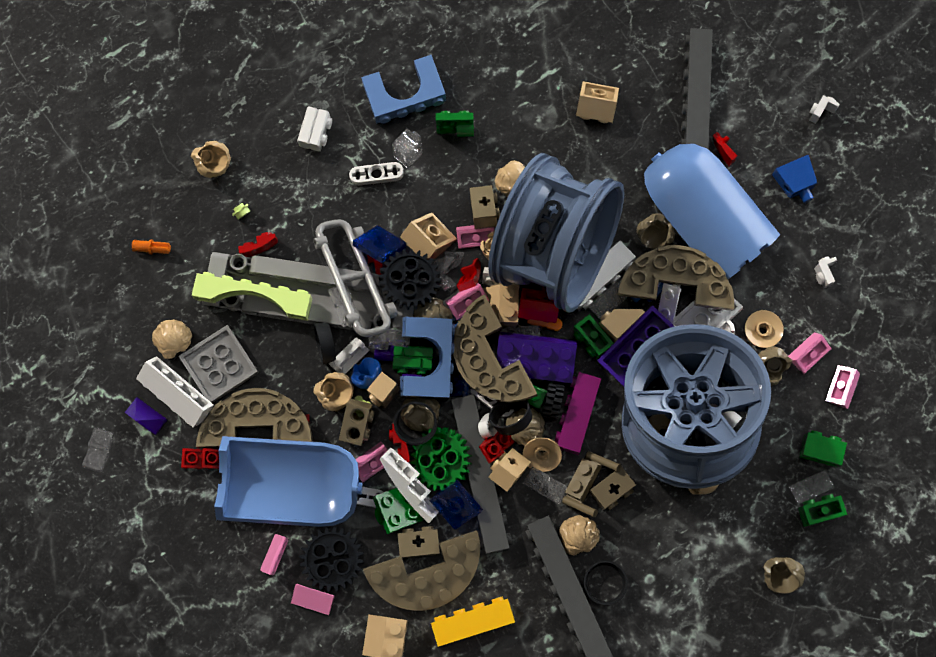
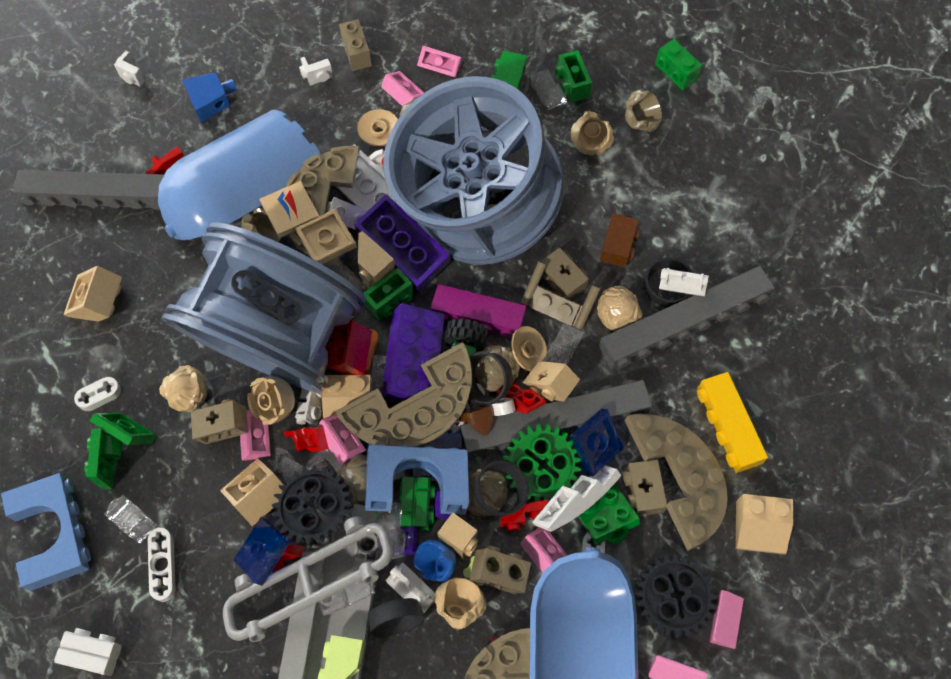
camera: 95 degrees left, 10 degrees down
(478, 408) = (479, 418): none -> reddish brown tile
(479, 136) = (123, 428): none -> green tile
(509, 117) = (97, 394): none -> white beam
(600, 592) = (683, 282): none -> white hinge
(640, 282) = (326, 237): none -> tan tile
(645, 540) = (618, 240): none -> reddish brown brick
(667, 251) = (289, 208): none -> tan tile
(757, 523) = (591, 134): none -> tan hair
(841, 615) = (678, 64): none -> green brick
(855, 306) = (355, 45): none -> dark tan brick

